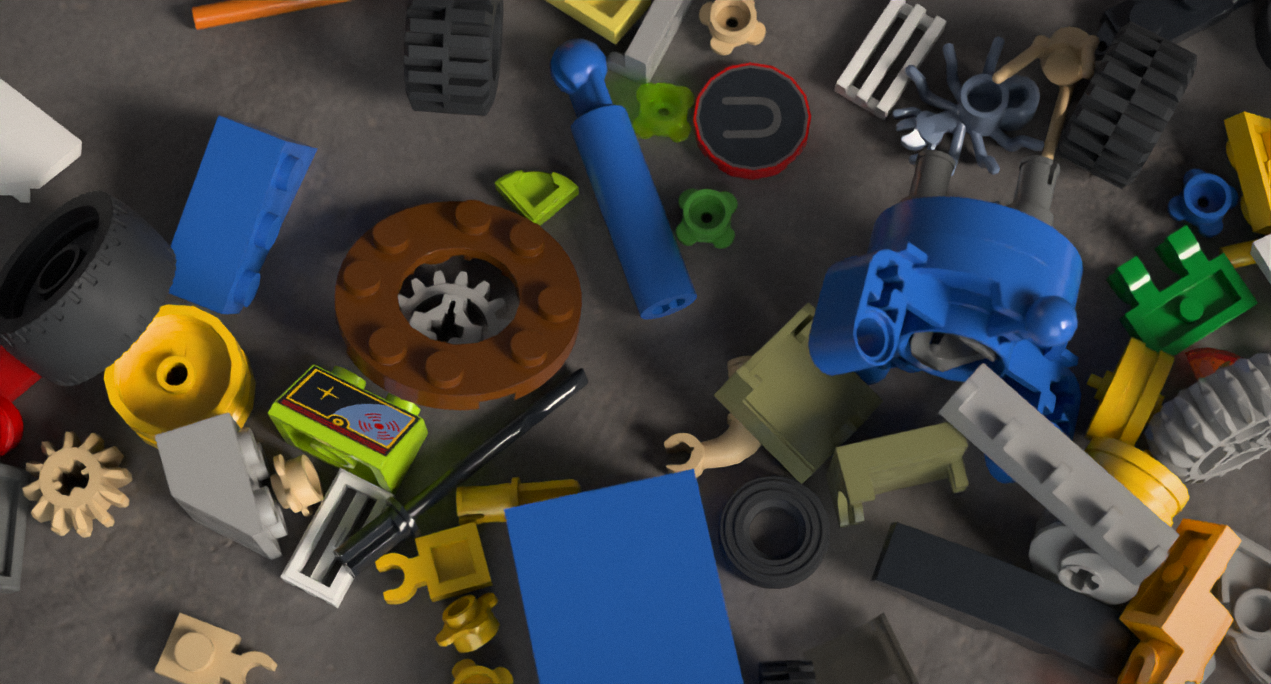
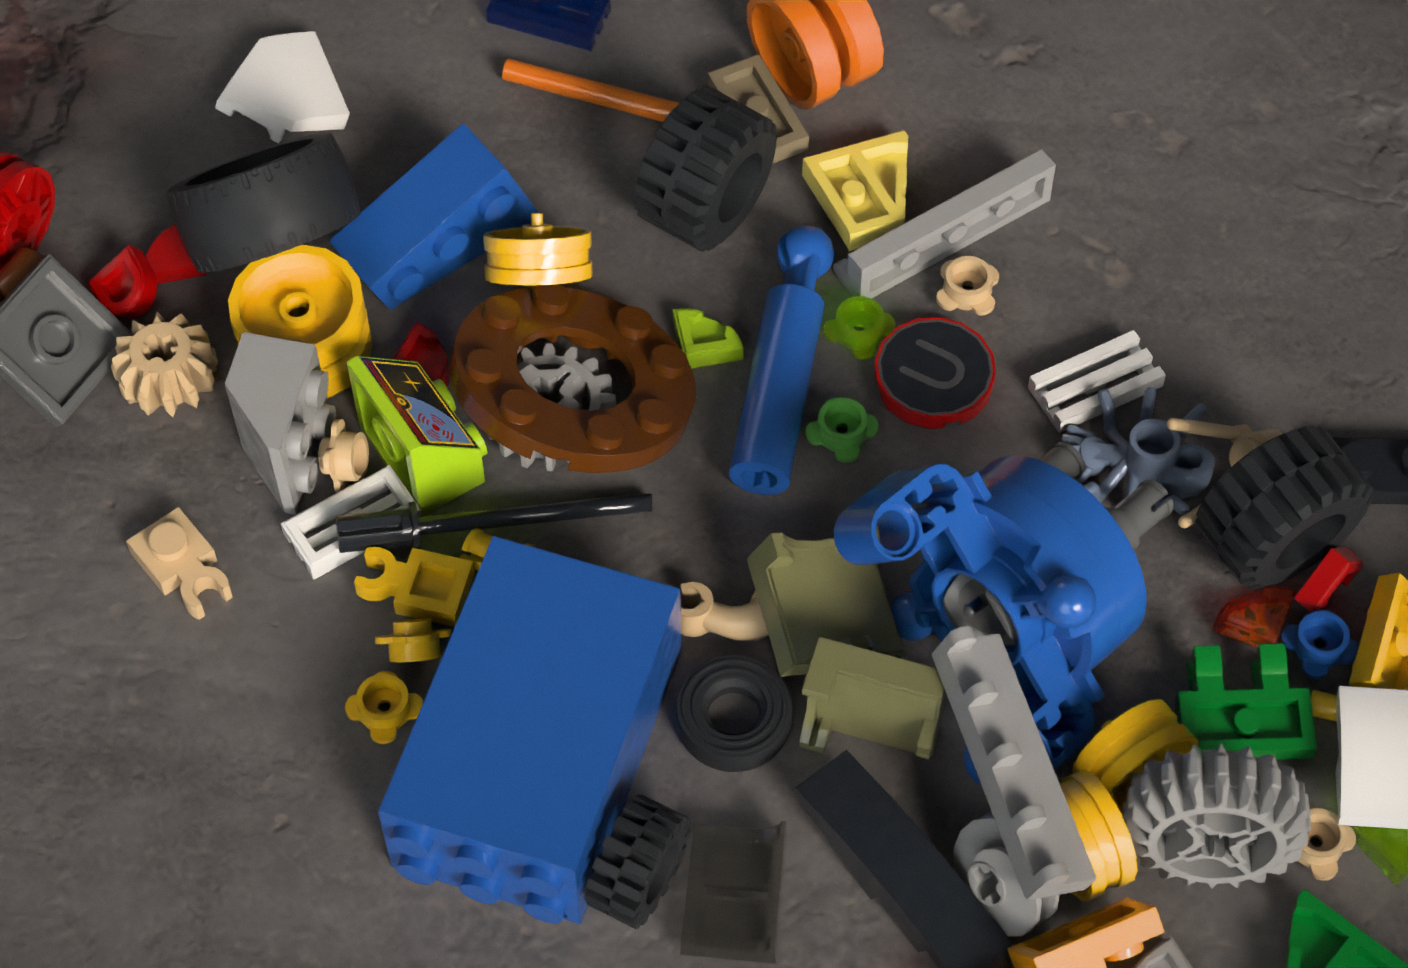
camera: 30 degrees right, 15 degrees down
(301, 347) = (424, 347): none -> red tile
(353, 200) = (538, 254): none -> yellow wheel
(1140, 205) = (1255, 617): none -> clear red tile
(1181, 140) = (1337, 567): none -> red tile

